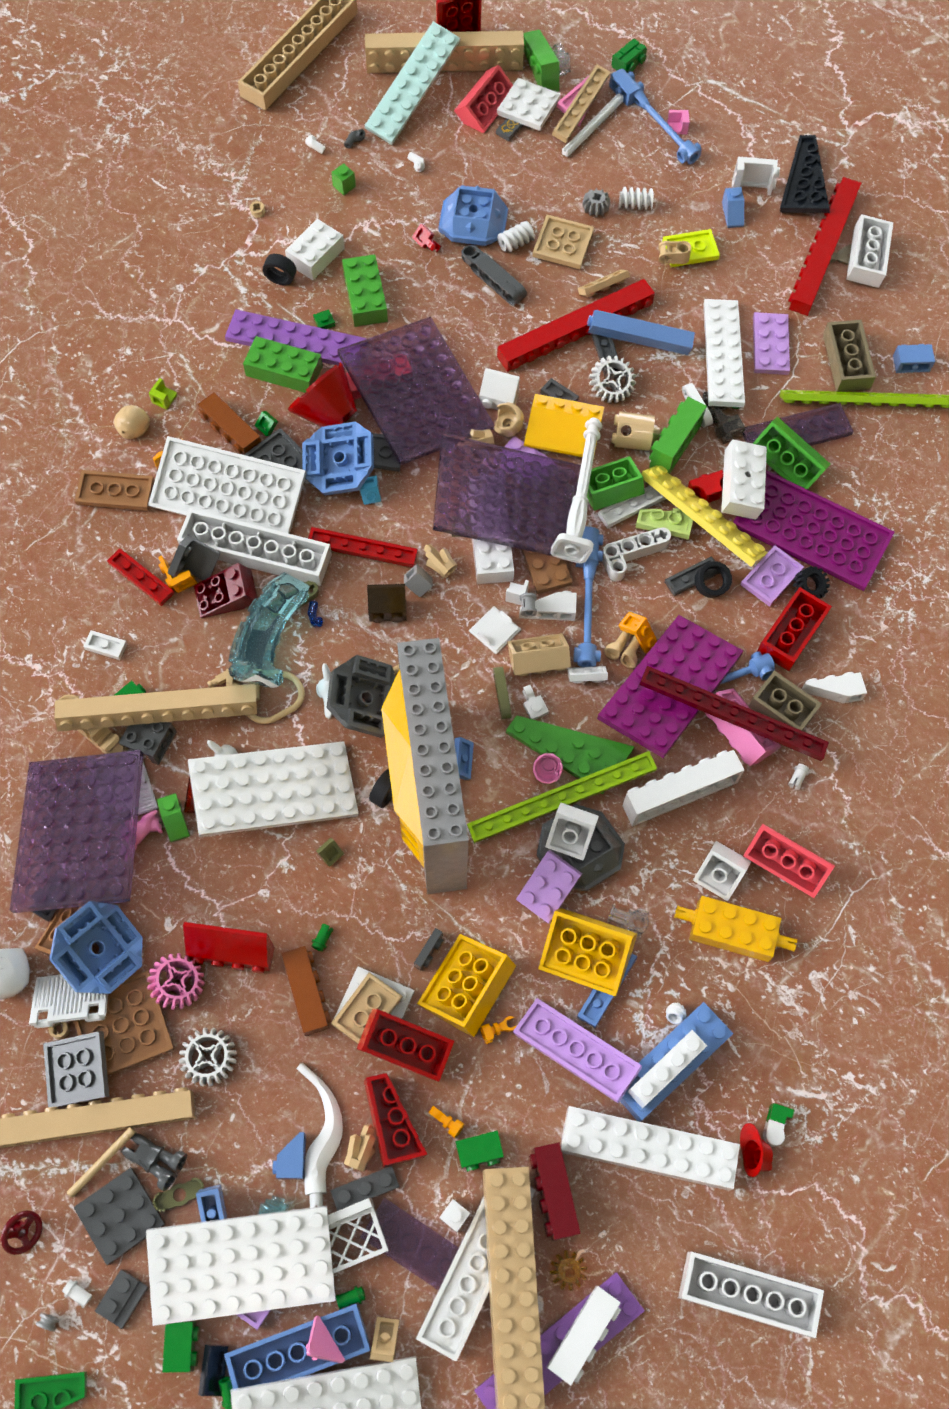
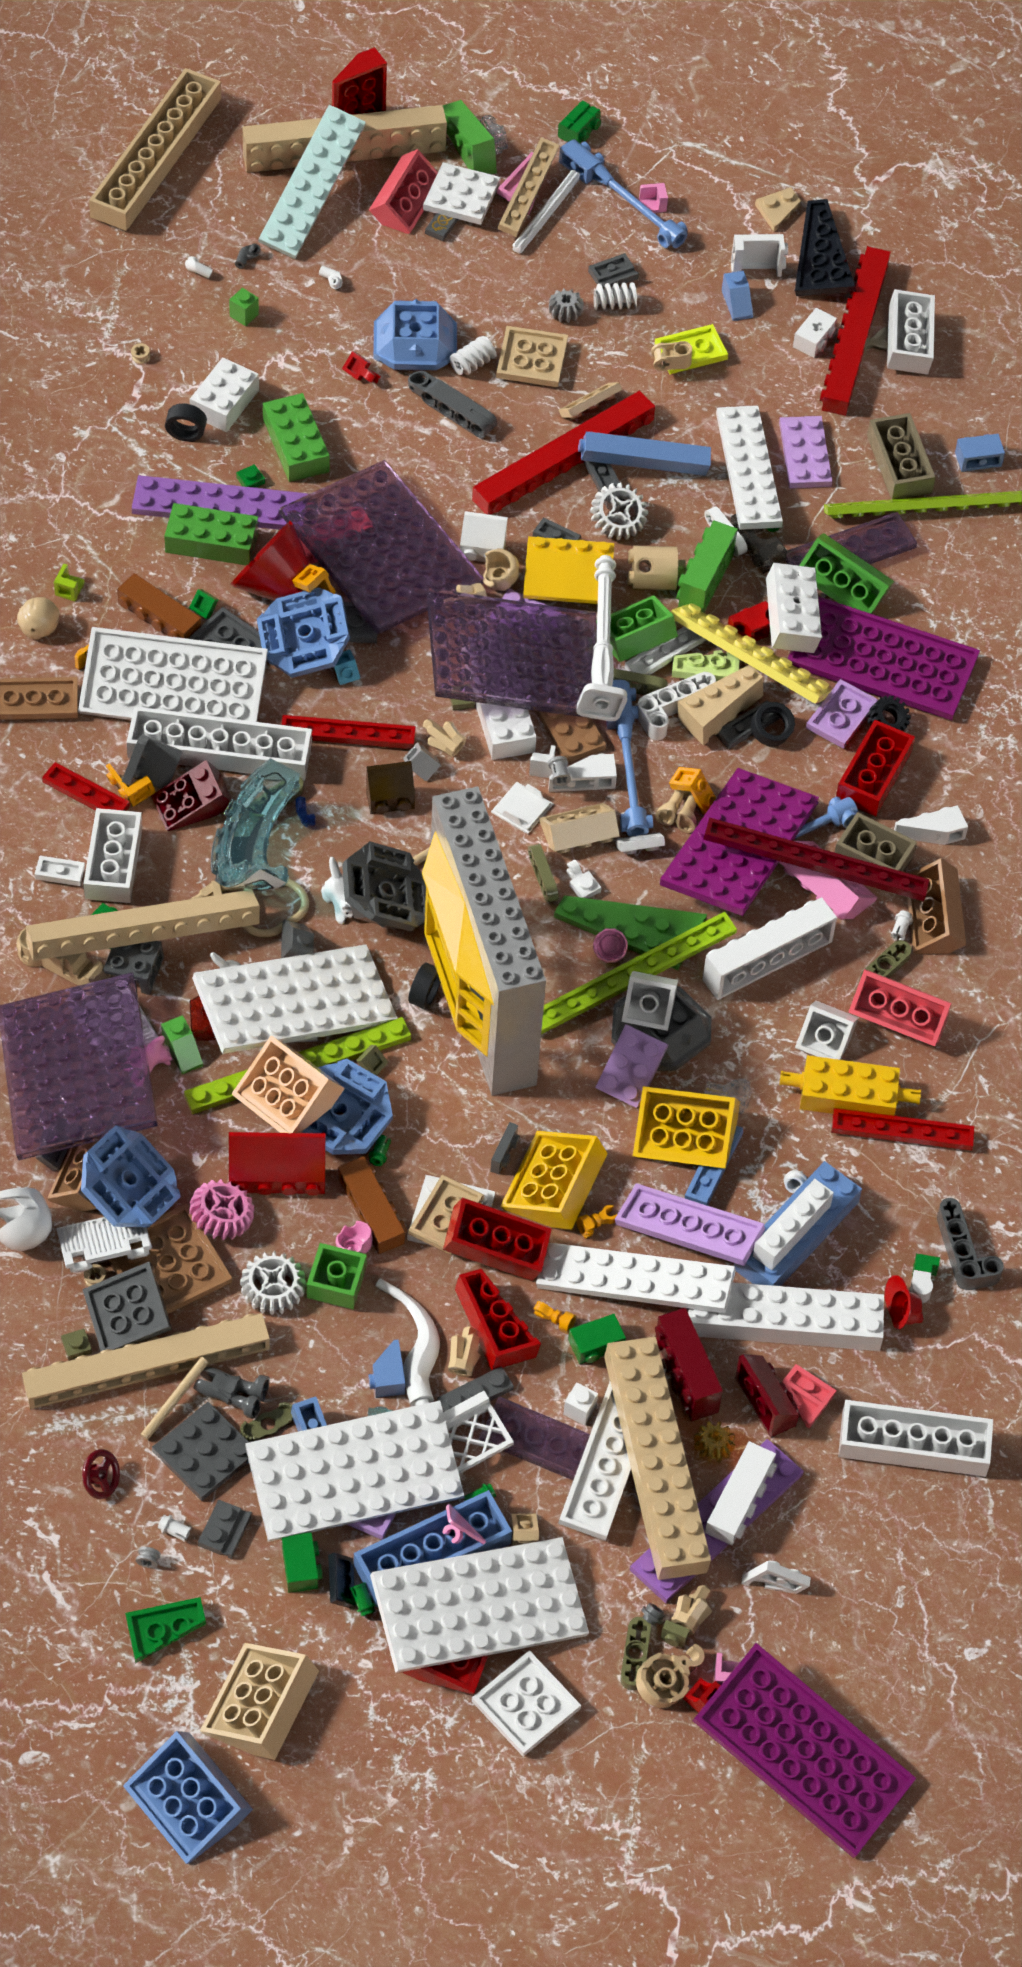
camera: 10 degrees left, 10 degrees down
(30, 1093) = (76, 1344): none -> olive plate
(149, 637) = (113, 855): none -> white brick
(248, 877) = (286, 1088): none -> light nougat slope
(262, 1059) = (336, 1276): none -> bright green brick
(266, 847) = (346, 1047): none -> lime plate
(284, 1024) = (355, 1238): none -> bright pink hair
(286, 731) = (296, 939): none -> dark grey slope
(289, 878) = (364, 1107): none -> medium blue piece
(351, 412) = (312, 578): none -> light orange bracket
(524, 1097) = (636, 1277): none -> white plate
(608, 530) = (647, 683): none -> olive beam
(622, 1229) = (766, 1394): none -> dark red slope
(638, 177) = (613, 270): none -> dark grey plate
(658, 1230) = (808, 1394): none -> coral wing
(670, 556) = (720, 702): none -> tan wedge
(775, 138) = (778, 206): none -> tan wing
(776, 973) = (903, 1129): none -> red plate
(787, 799) = (888, 956): none -> olive beam
(792, 244) = (815, 333): none -> white brick
(816, 1094) = (963, 1244): none -> dark grey beam
(832, 778) = (939, 919): none -> medium nougat slope

